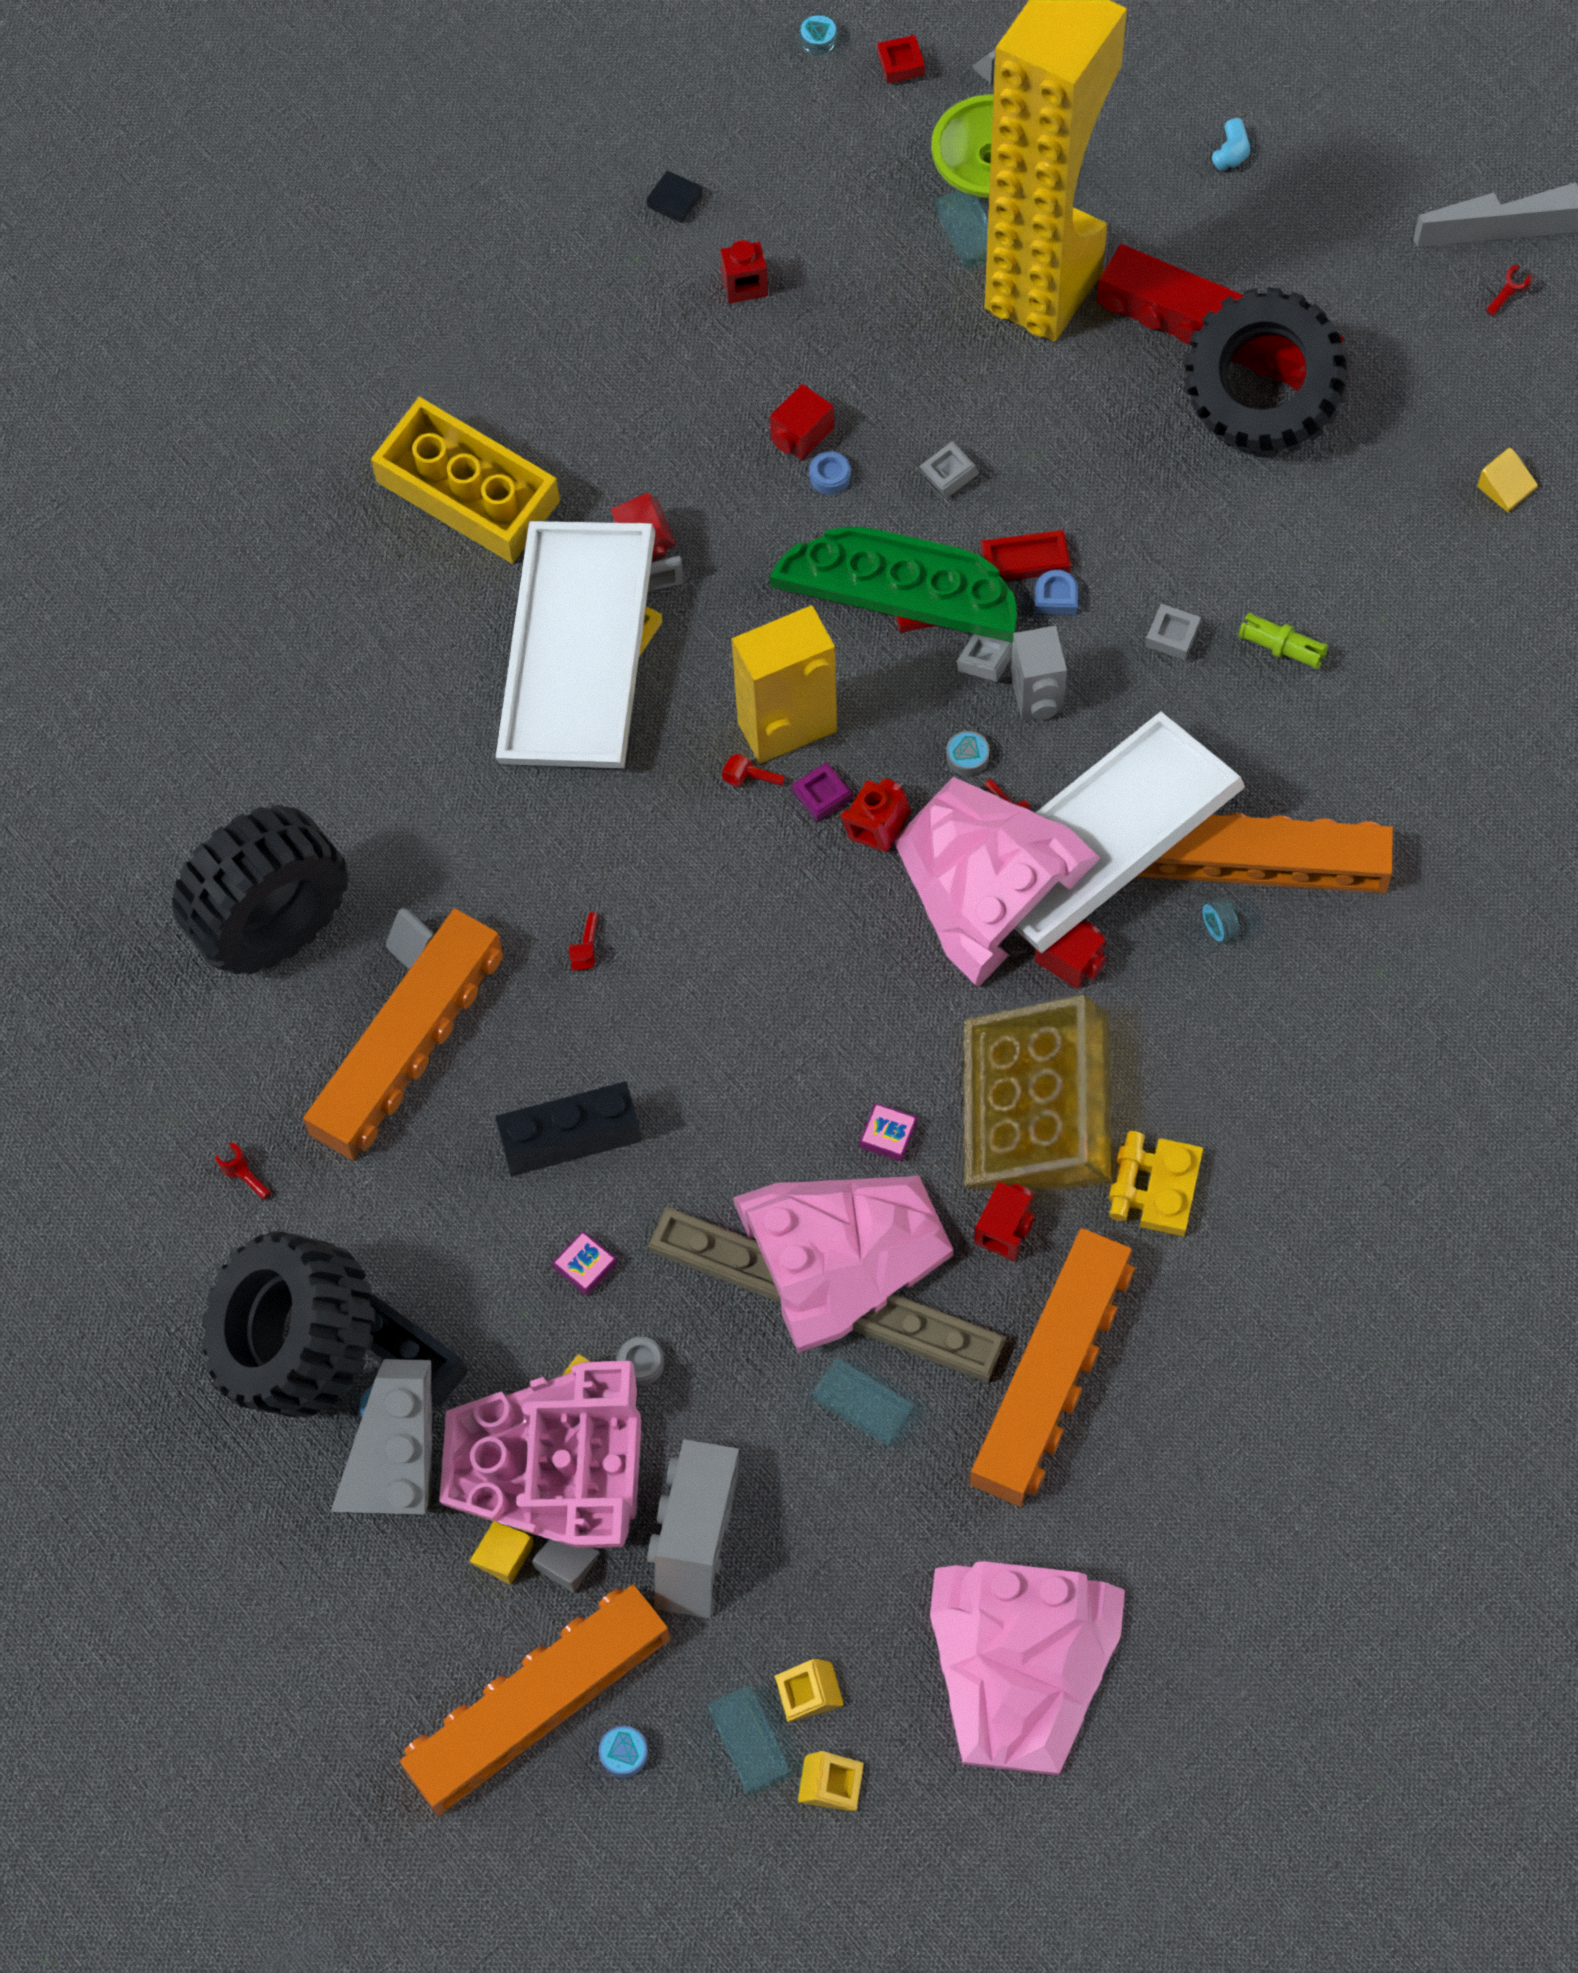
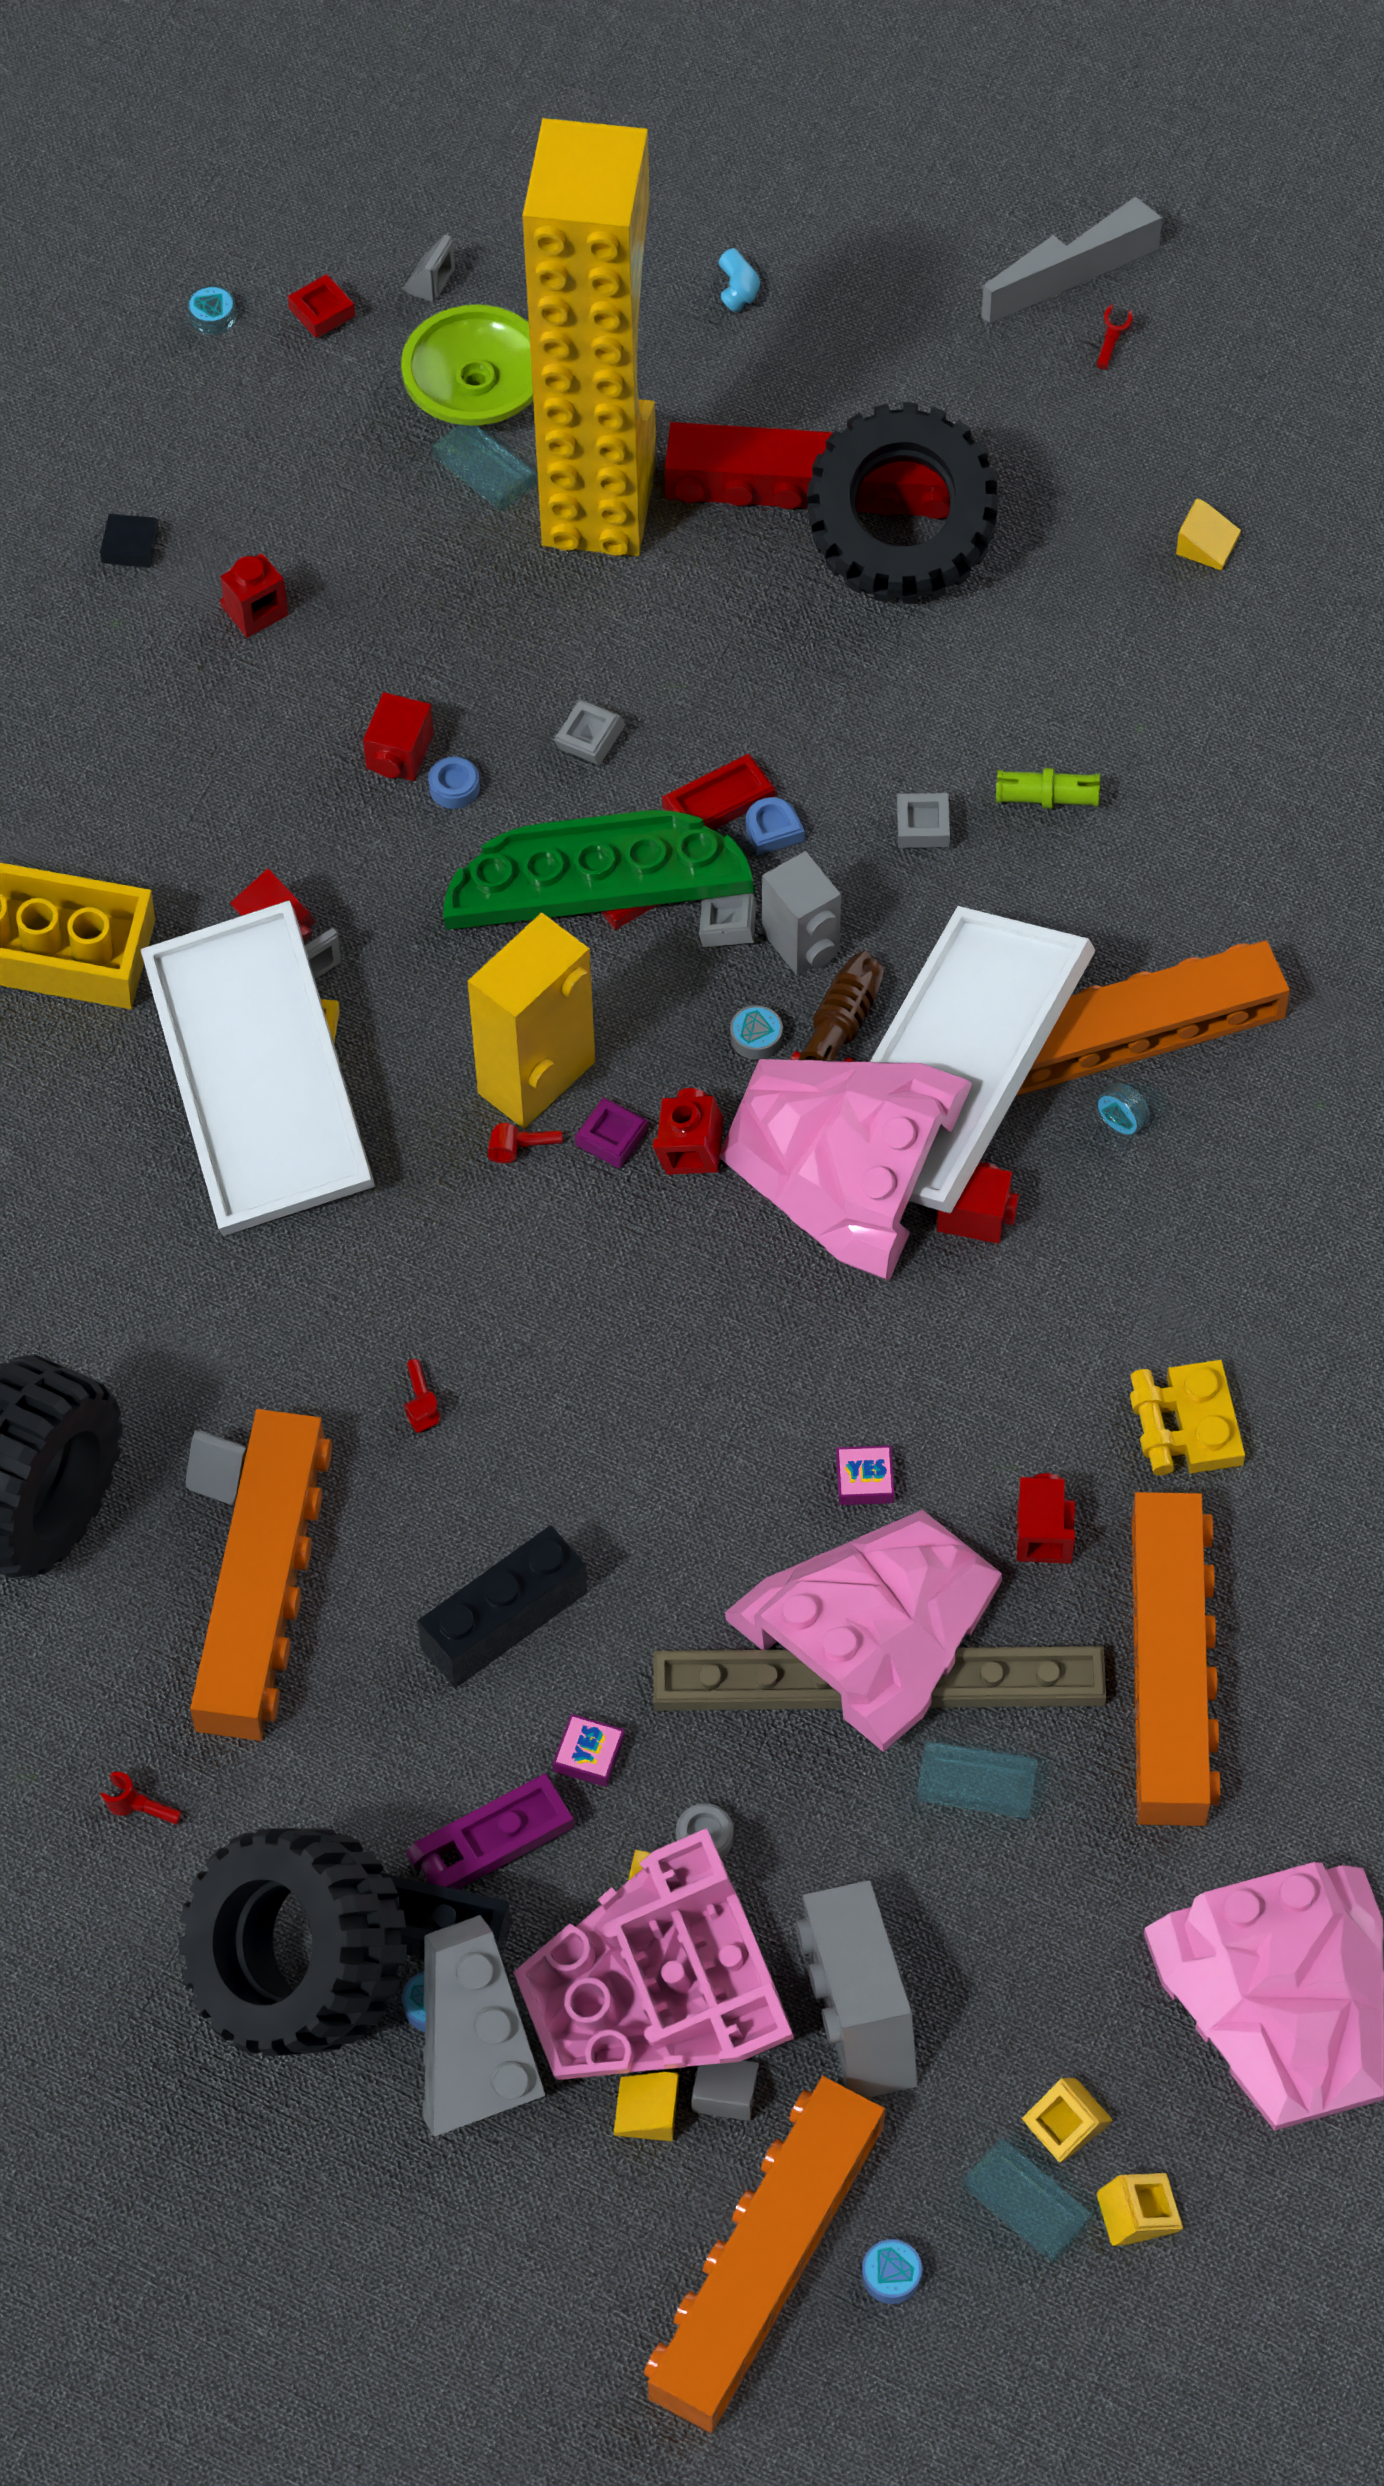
camera: 25 degrees left, 5 degrees down
(481, 1300) = (493, 1834): none -> magenta plate
(1037, 1096) = (1013, 1373): clear yellow slope -> none
(1040, 760) = (844, 1007): none -> reddish brown hinge

